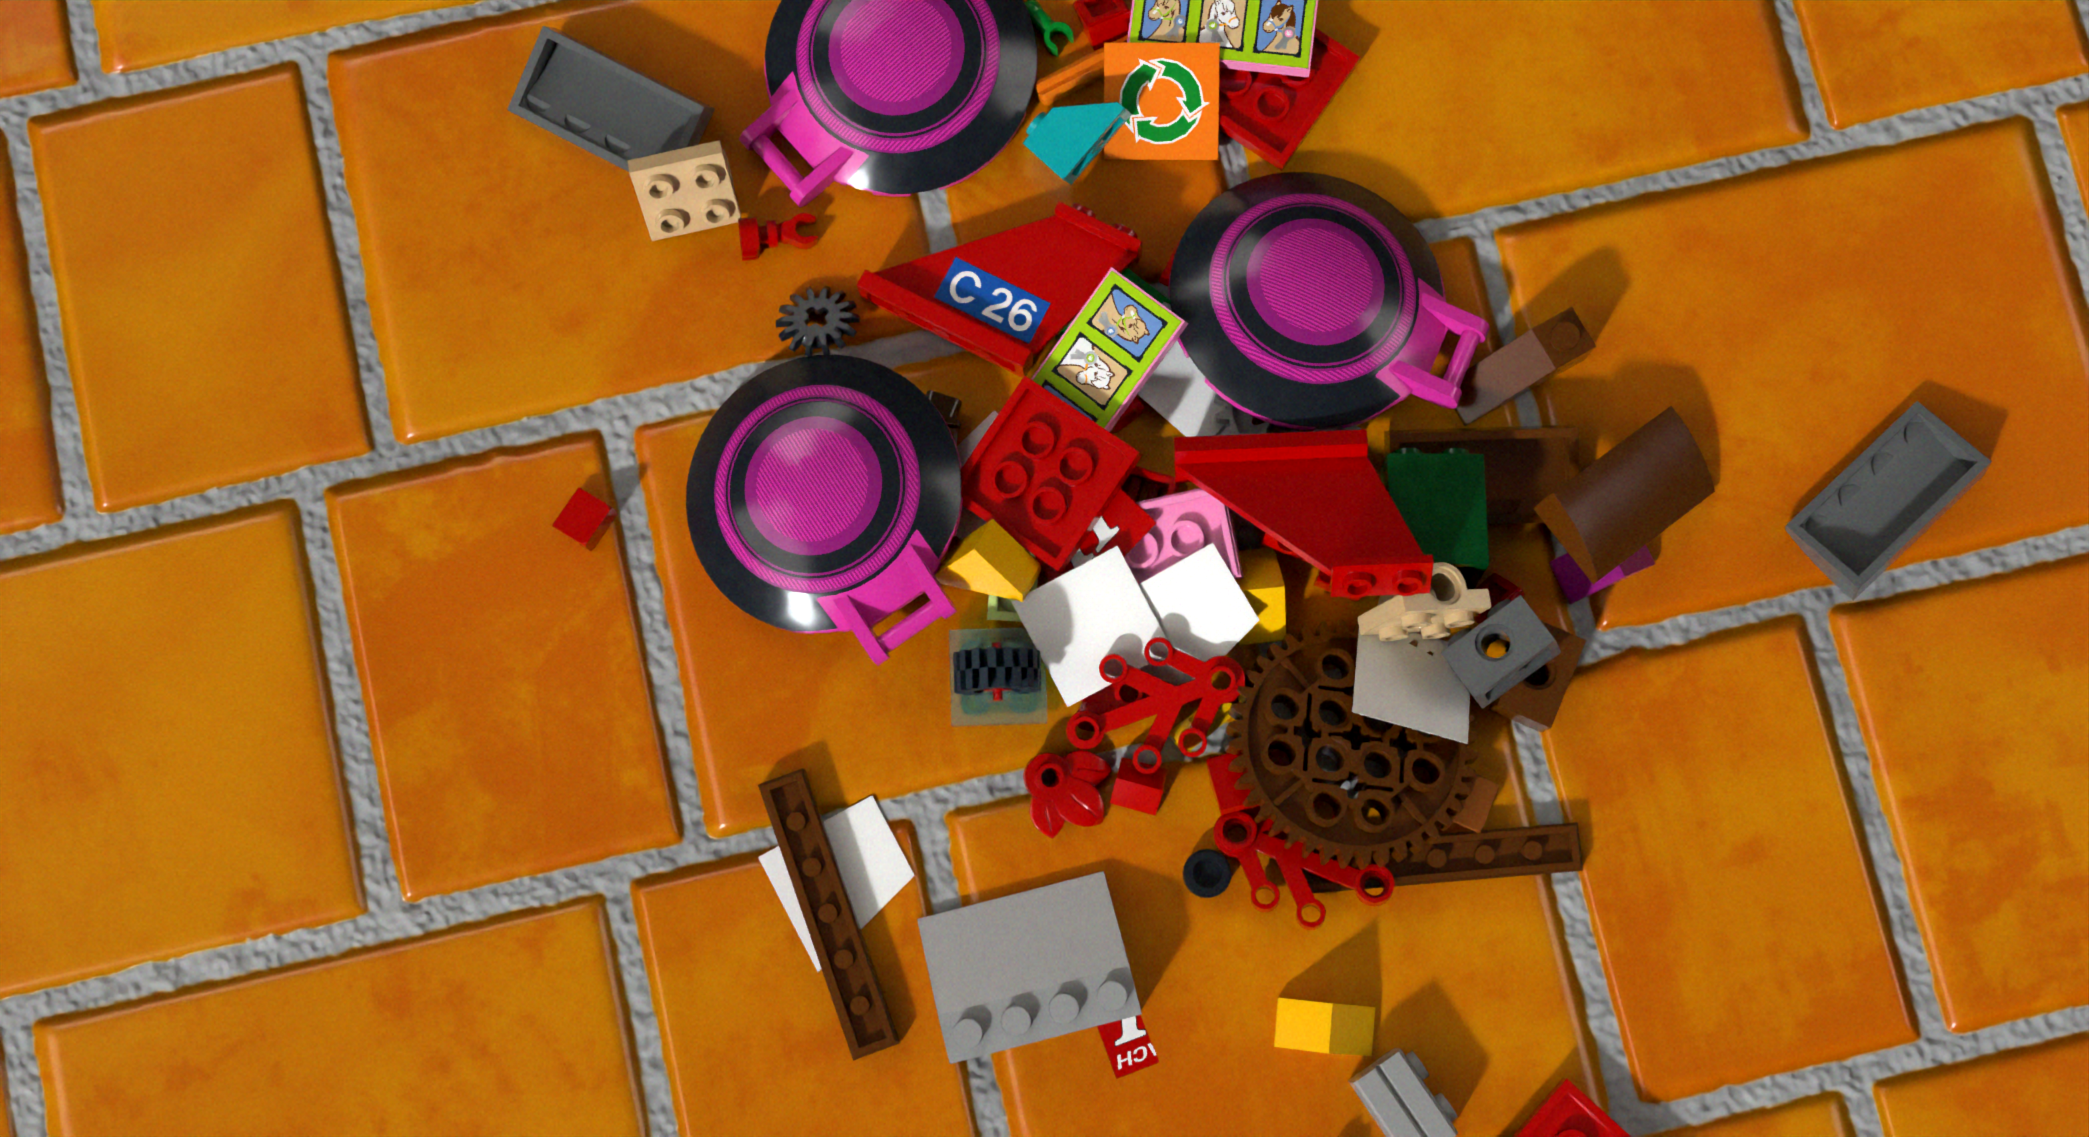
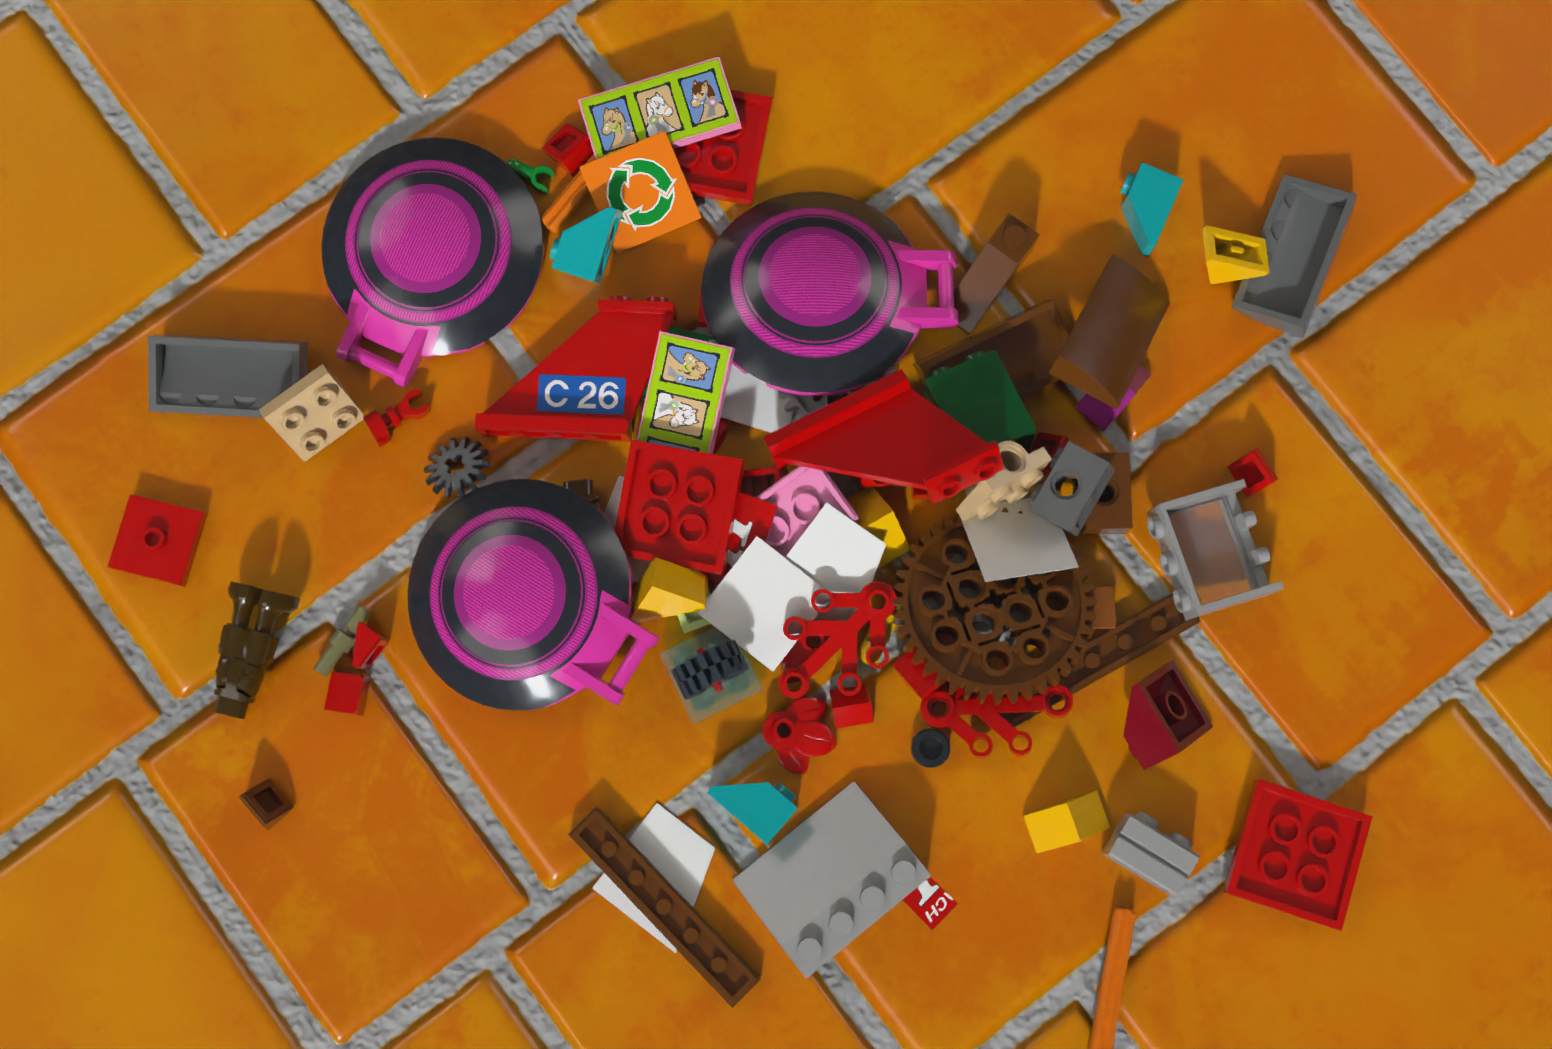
camera: 25 degrees left, 0 degrees up
(444, 600) = (266, 803): none -> reddish brown slope
(453, 257) = (157, 540): none -> red plate
(495, 422) = (247, 651): none -> dark brown piece
(605, 458) = (341, 641): none -> olive bar
(630, 477) = (367, 646): none -> red slope
(982, 849) = (757, 806): none -> teal slope
(1488, 957) = (1163, 717): none -> dark red slope
(1630, 794) = (1210, 551): none -> window
(1721, 728) = (1254, 471): none -> red slope
(1740, 366) = (1148, 204): none -> teal slope
(1813, 468) = (1233, 255): none -> yellow slope

